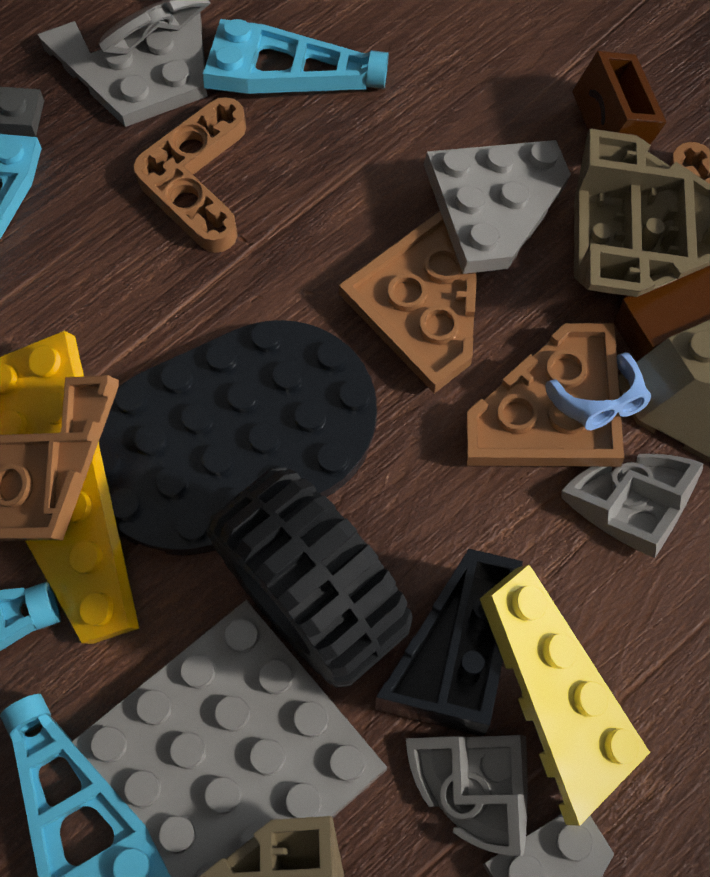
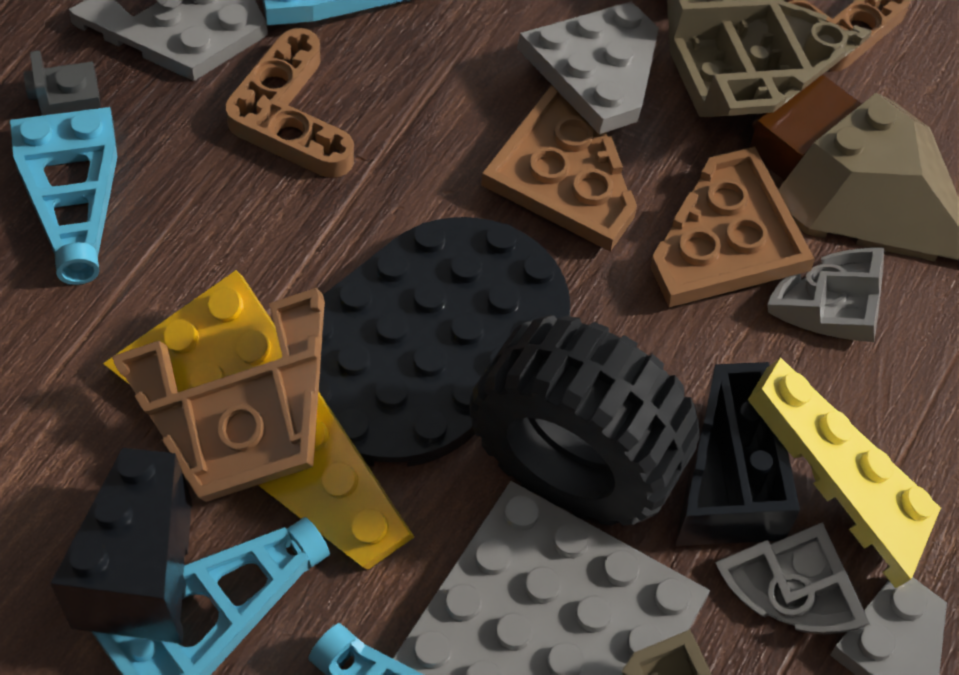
camera: 25 degrees left, 10 degrees down
(590, 411) = (767, 223): light blue cap -> none

